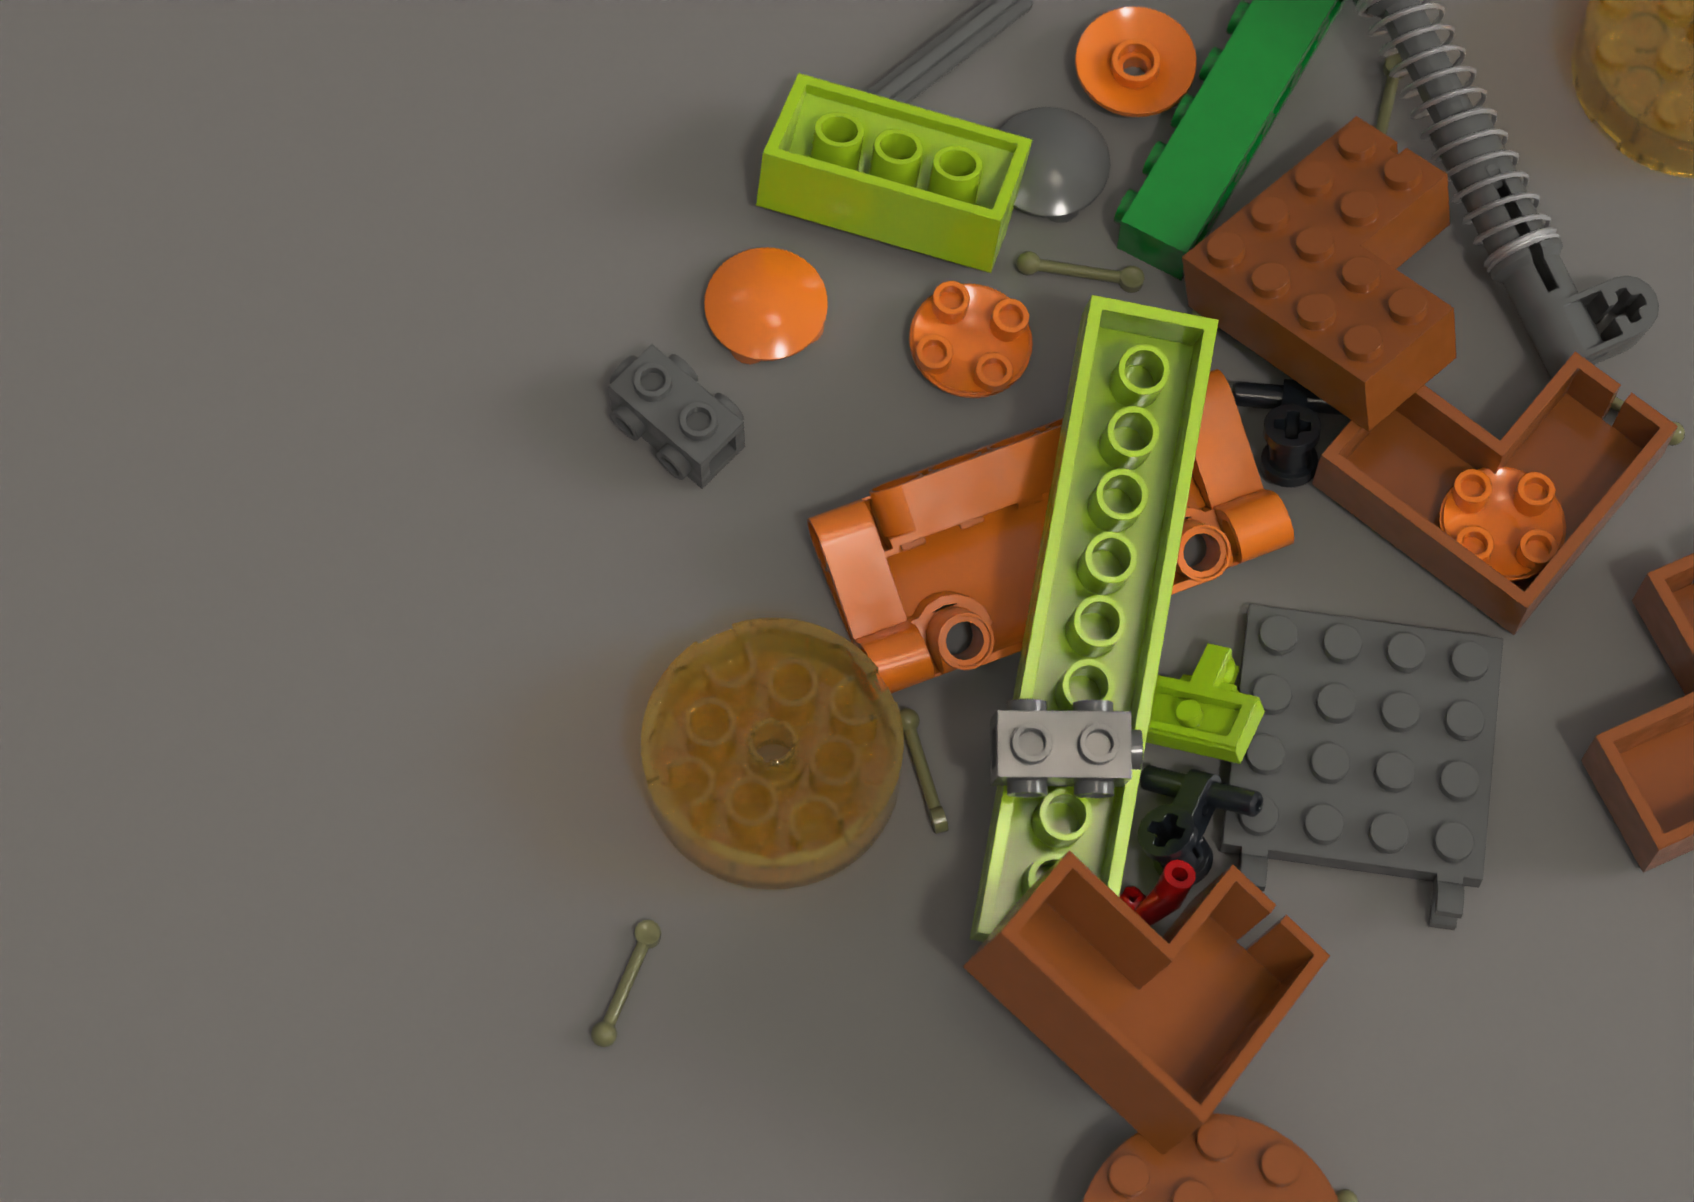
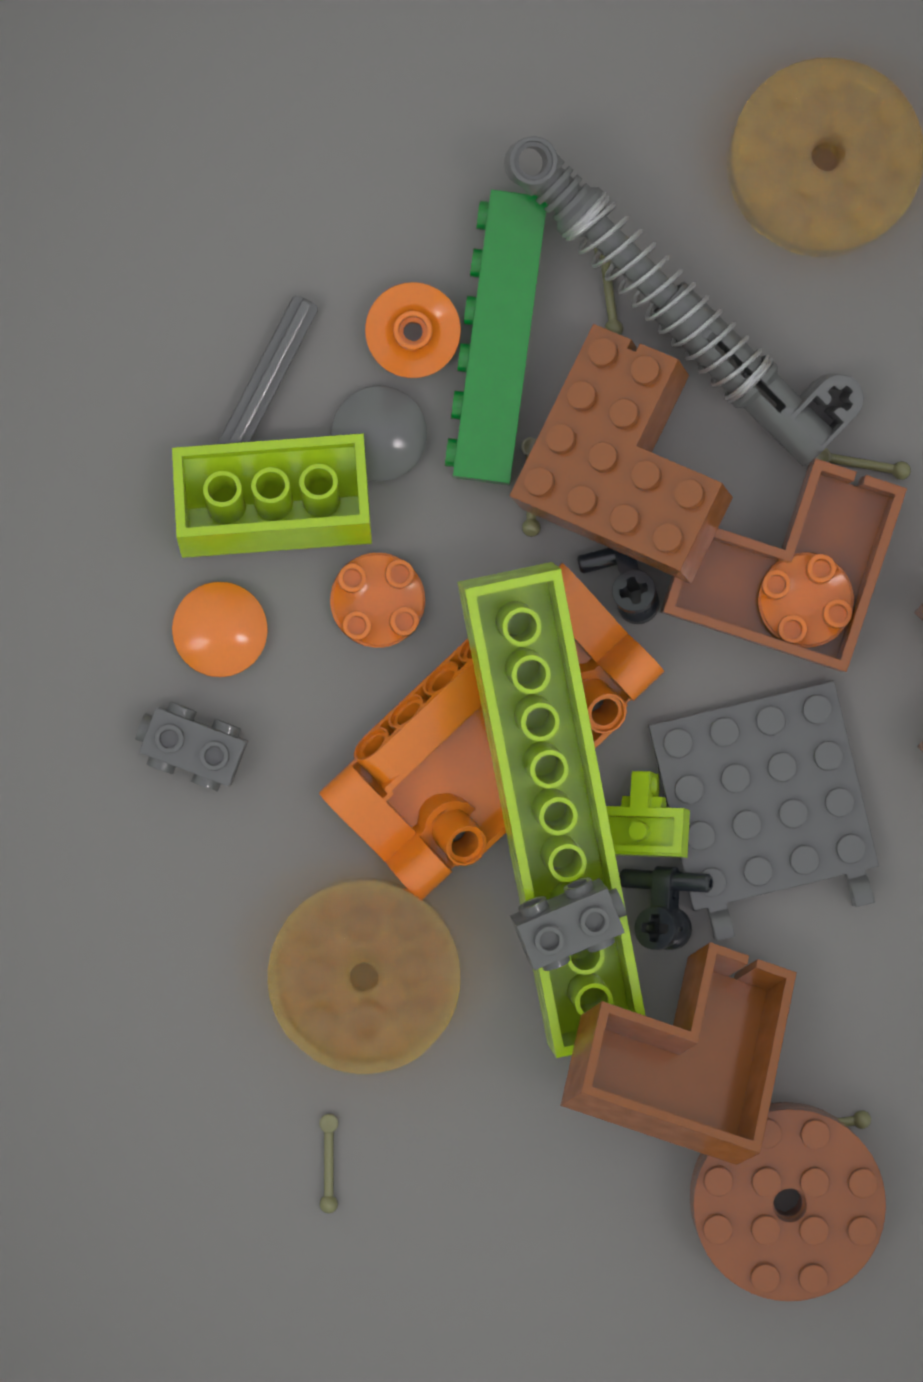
camera: 15 degrees left, 20 degrees up
(910, 723) = (445, 904): olive hinge -> none
(1129, 279) = (472, 501): olive hinge -> none
(1165, 896) = (667, 967): red arm -> none

